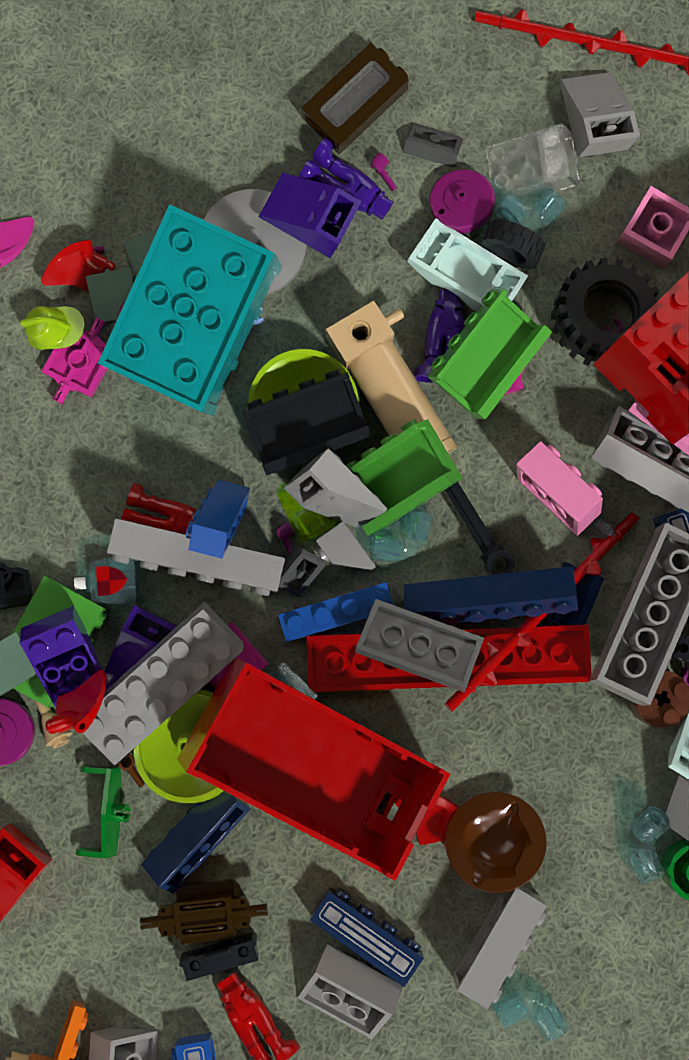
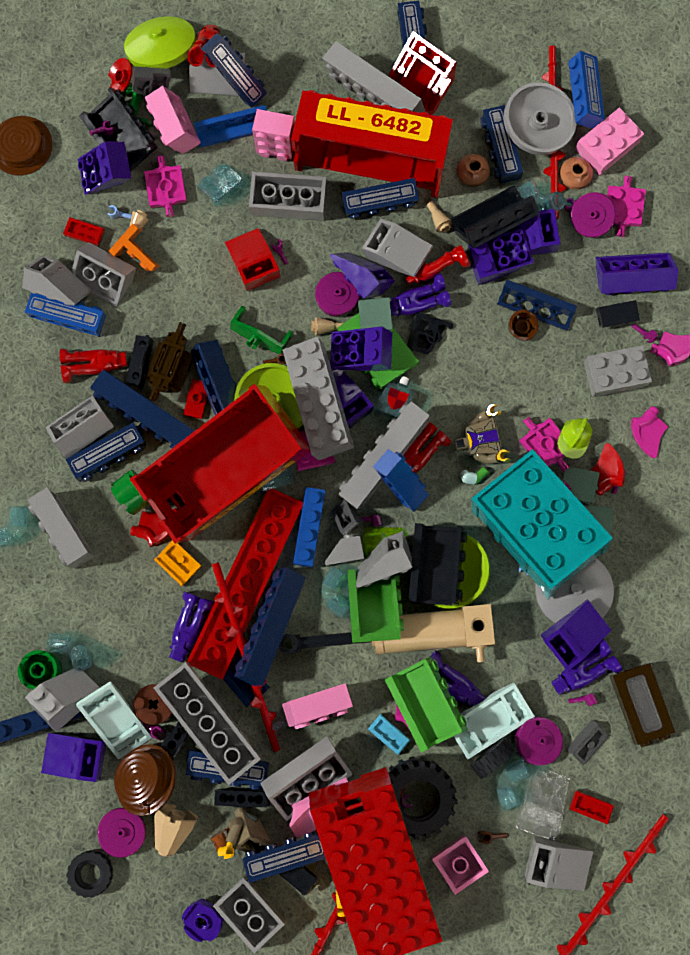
camera: 120 degrees right, 5 degrees down
(79, 707) = (327, 344): red arm -> none
(110, 443) = (483, 438): none -> torso
(168, 433) = (473, 478): none -> arm
(237, 850) = (196, 400): none -> red plate
(286, 917) = (139, 409): none -> dark blue brick
(411, 880) = (127, 494): none -> green brick
(419, 645) = (262, 565): dark grey plate -> none
(466, 761) = (177, 563): none -> light orange plate
(496, 842) = (120, 555): reddish brown piece -> none
(509, 105) = (591, 807): none -> red plate
(545, 386) = (389, 734): none -> medium azure plate
(554, 702) = (185, 636): none -> dark purple piece
(606, 209) = (489, 837): none -> reddish brown hand

